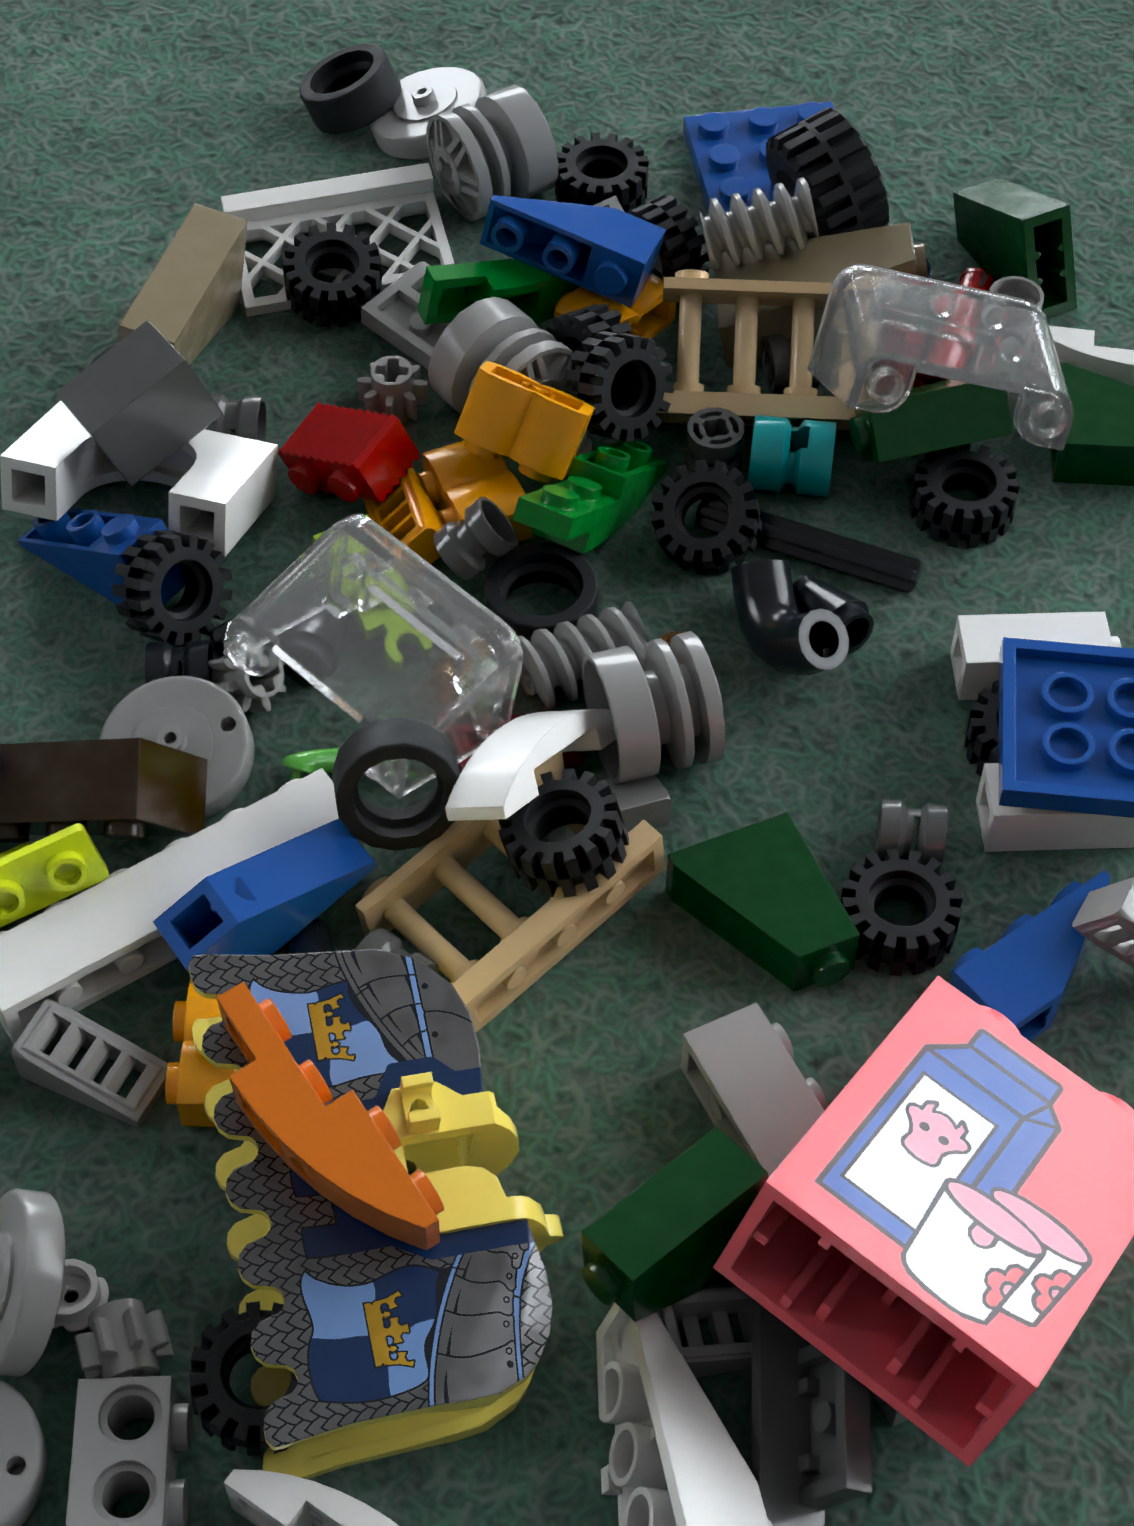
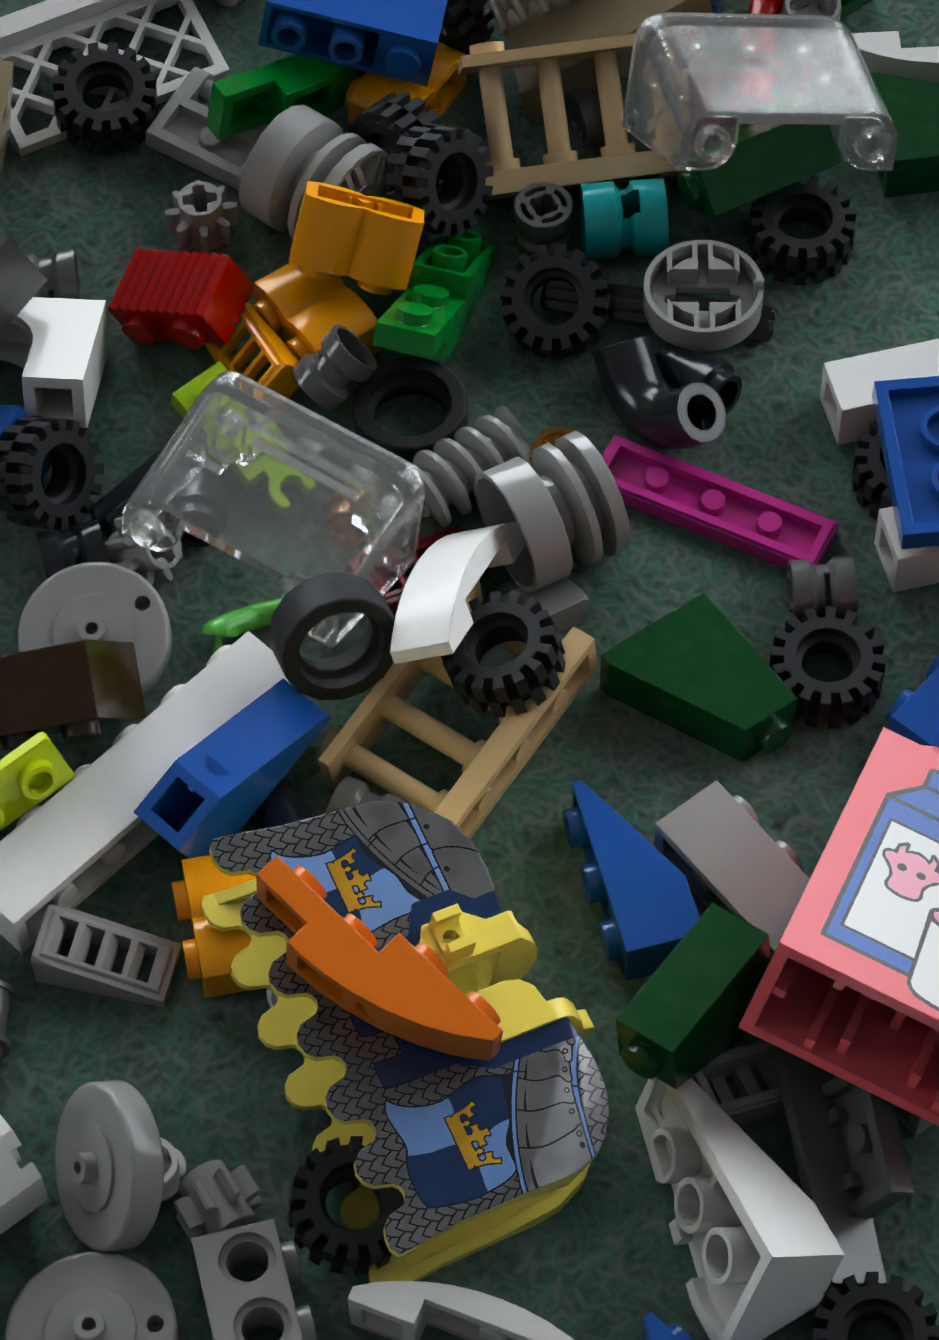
camera: 10 degrees left, 5 degrees up
(649, 1092) = (637, 886): none -> blue slope
(822, 735) = (717, 506): none -> dark pink tile
(856, 511) = (703, 268): none -> light grey piece

